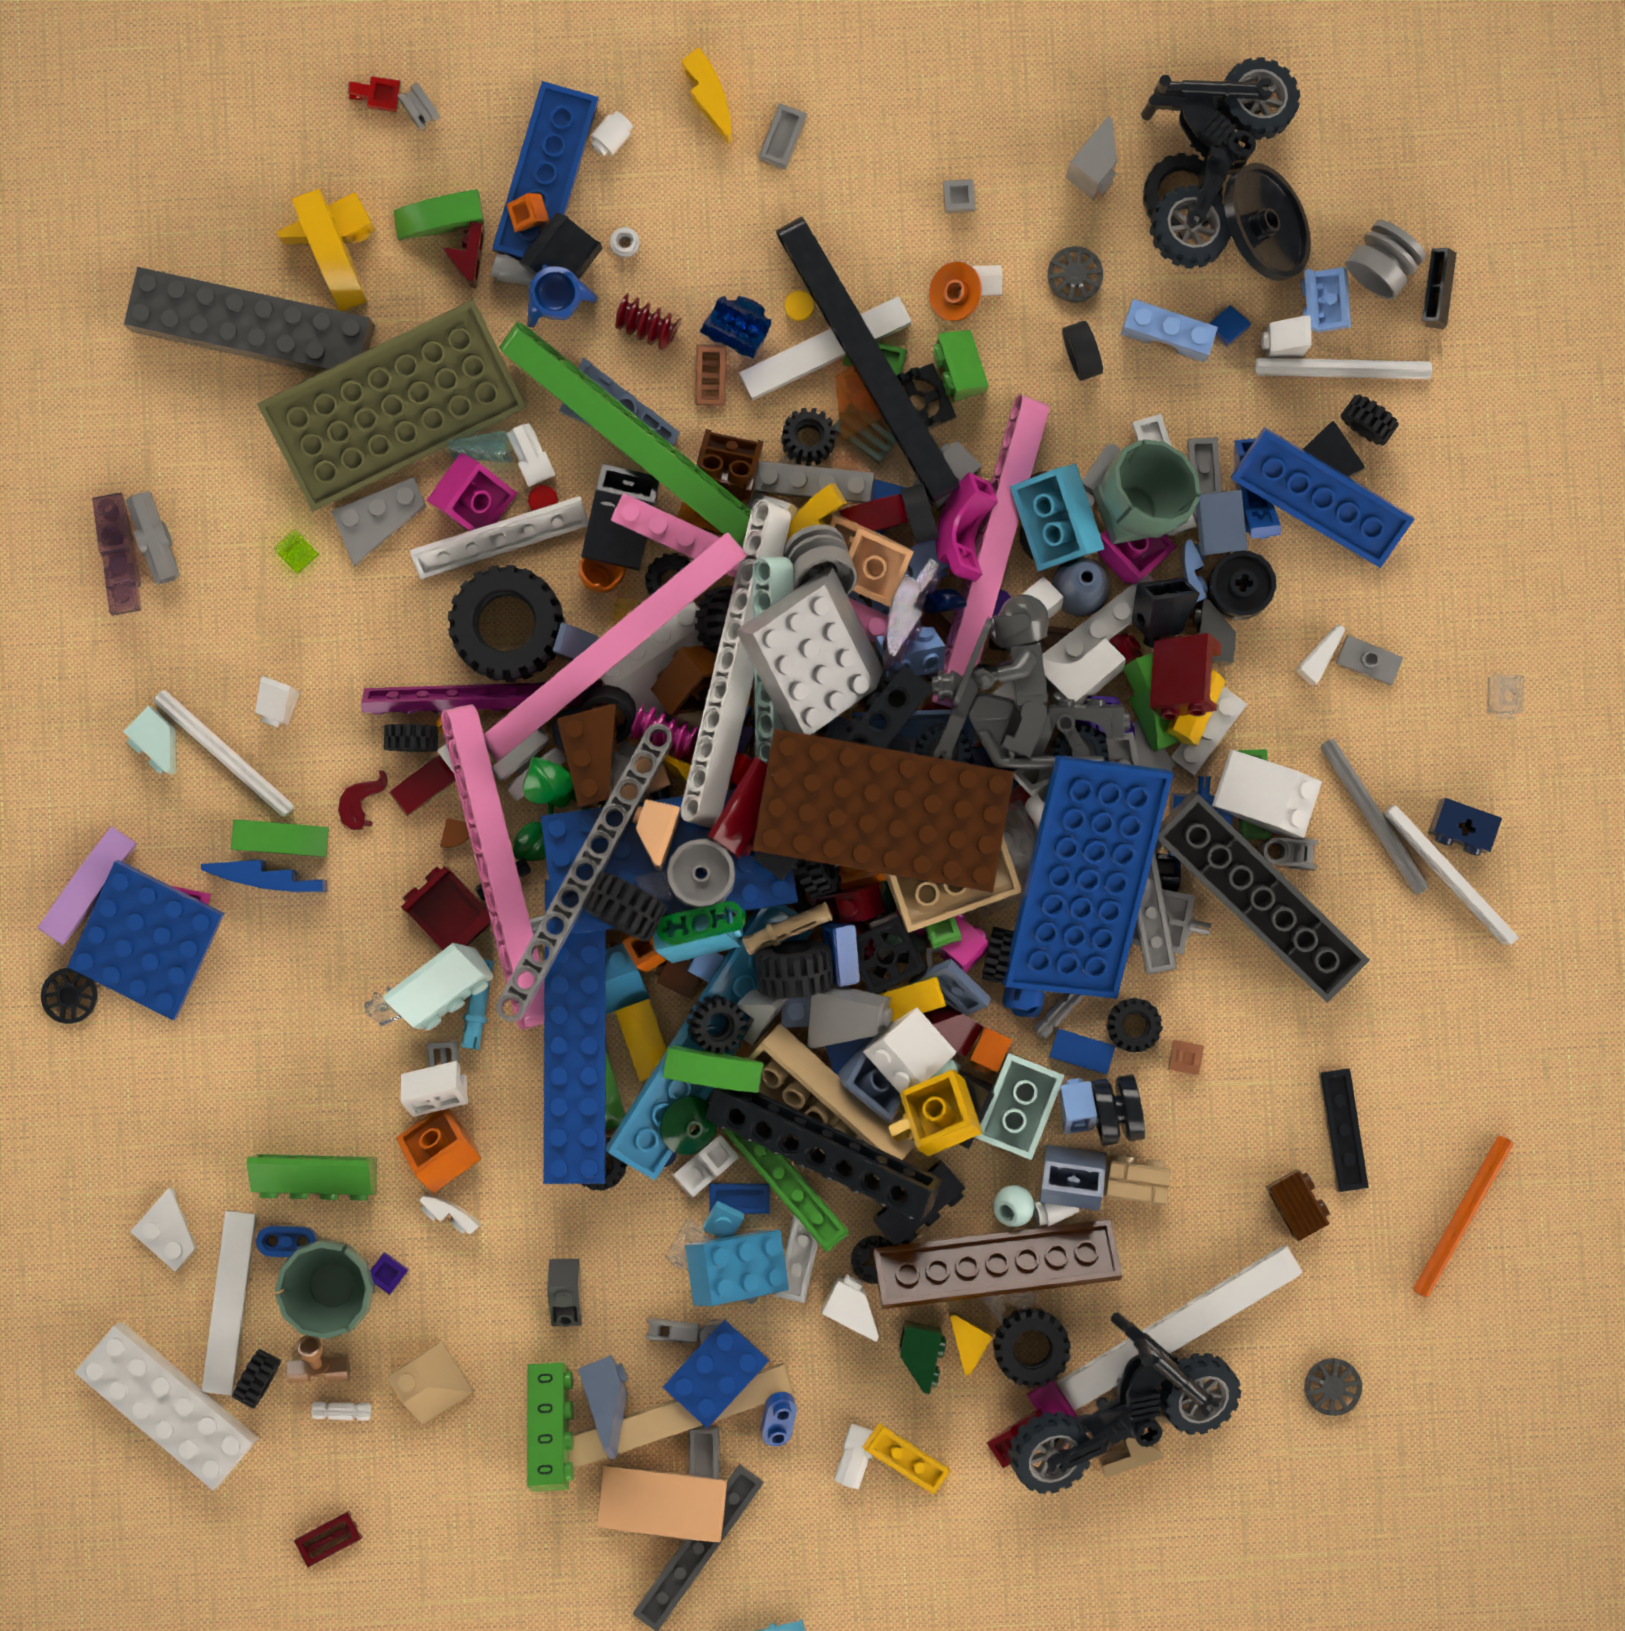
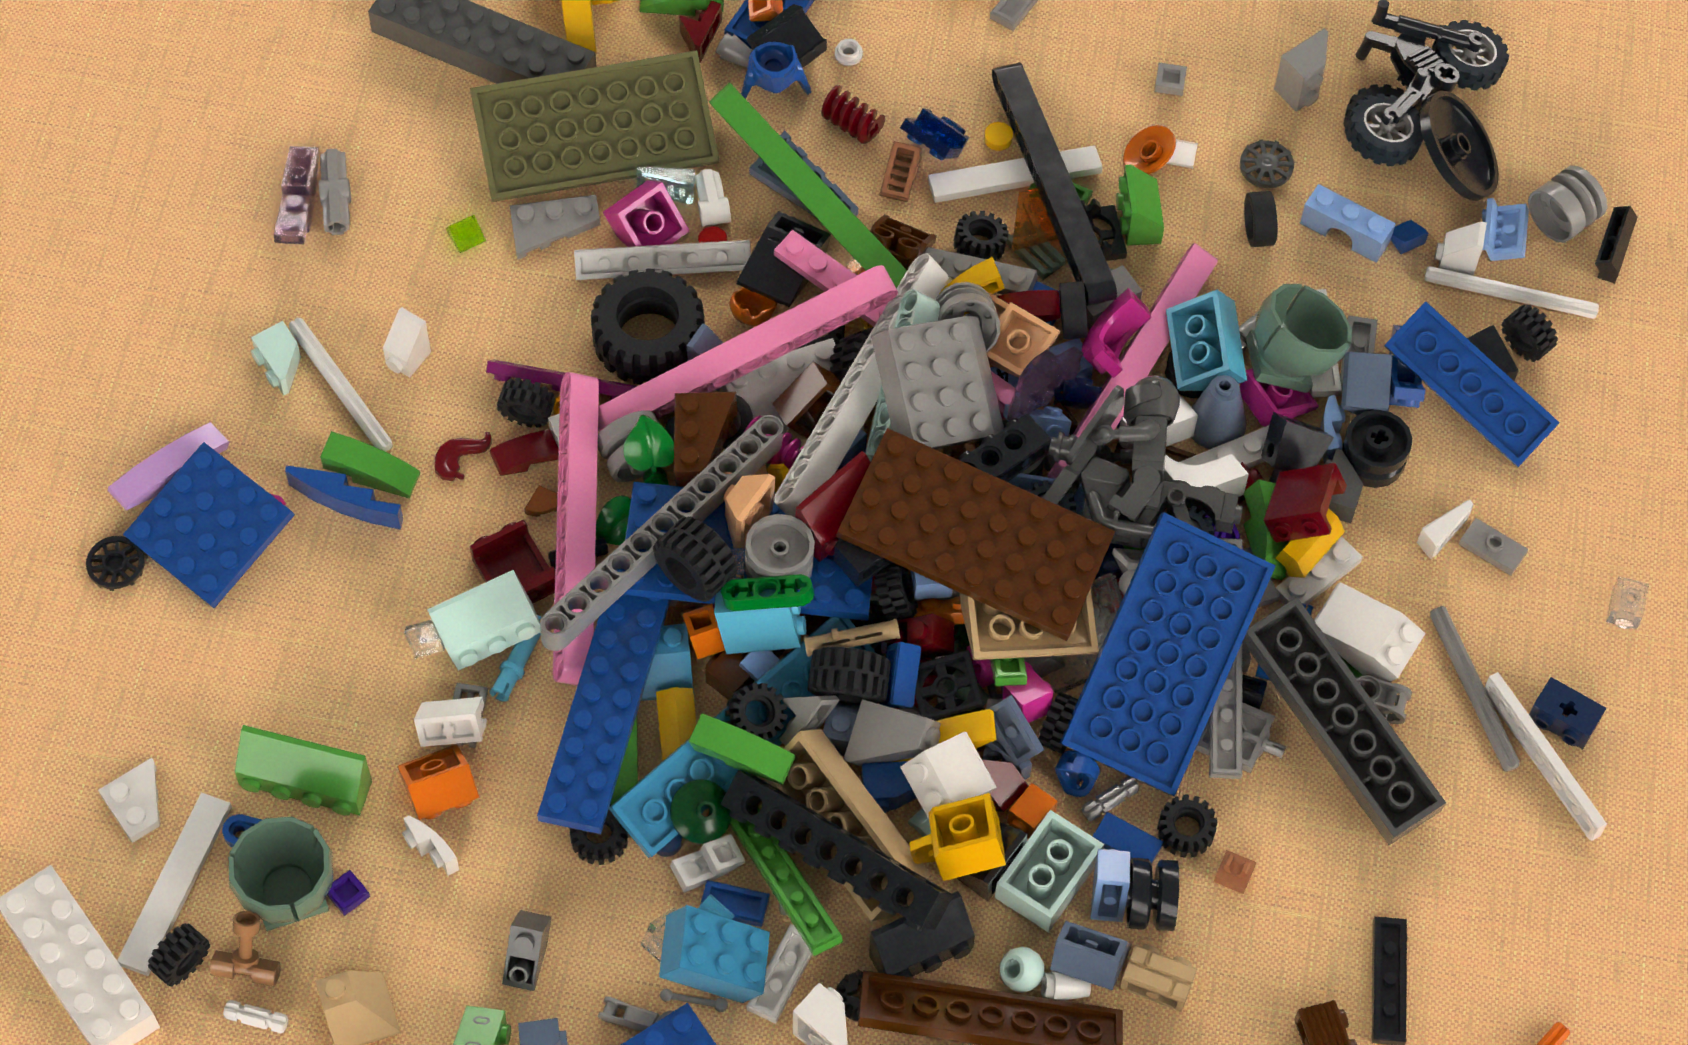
camera: 10 degrees right, 25 degrees down
(870, 1085) = (901, 806): sand blue slope -> none

